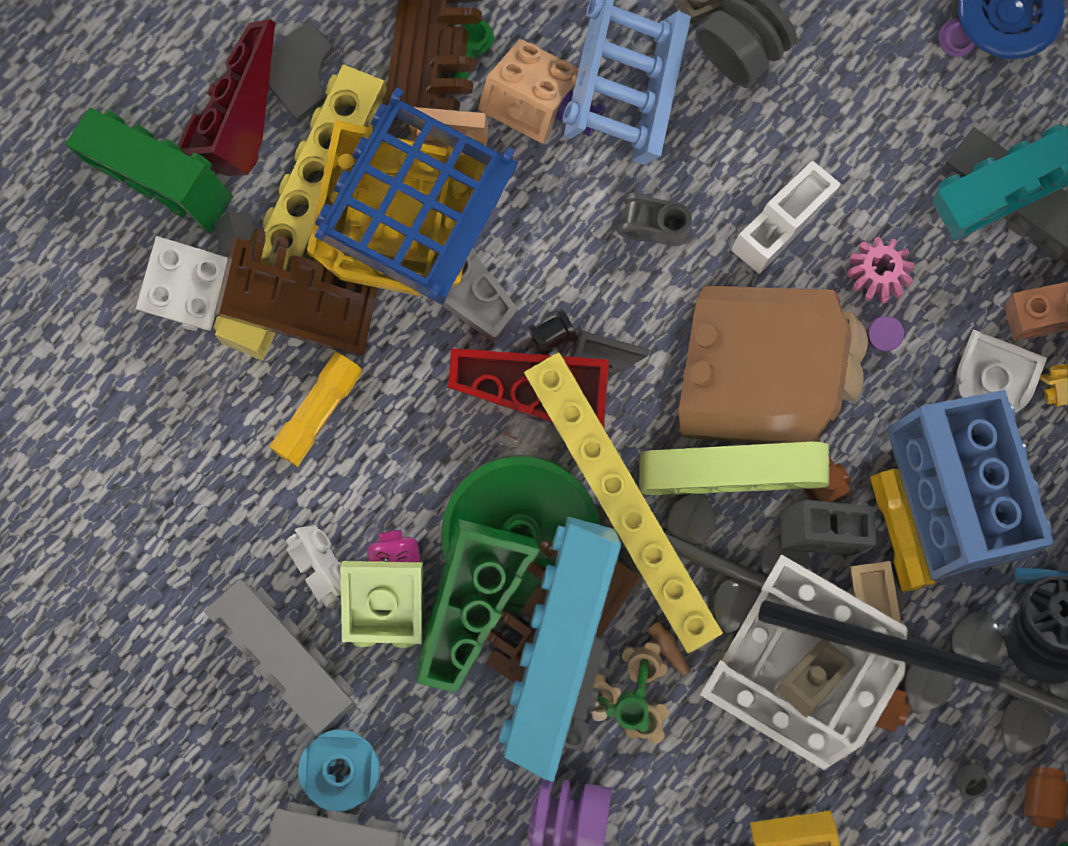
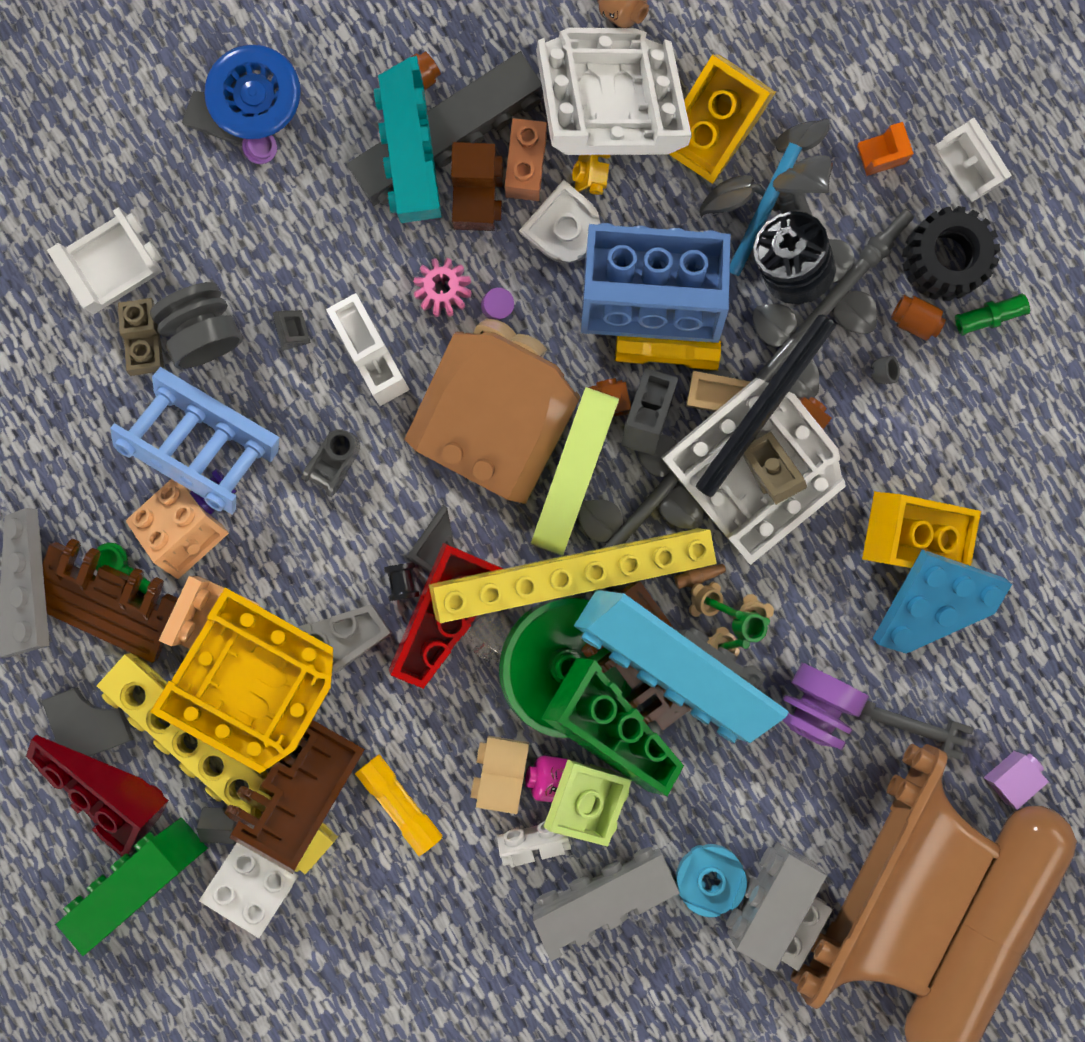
camera: 80 degrees left, 10 degrees up
(383, 504) = (501, 774): none -> tan brick
(469, 222) = (286, 623): blue window -> none
(778, 133) = (291, 329): none -> dark grey slope
(1006, 265) = (474, 178): none -> reddish brown brick

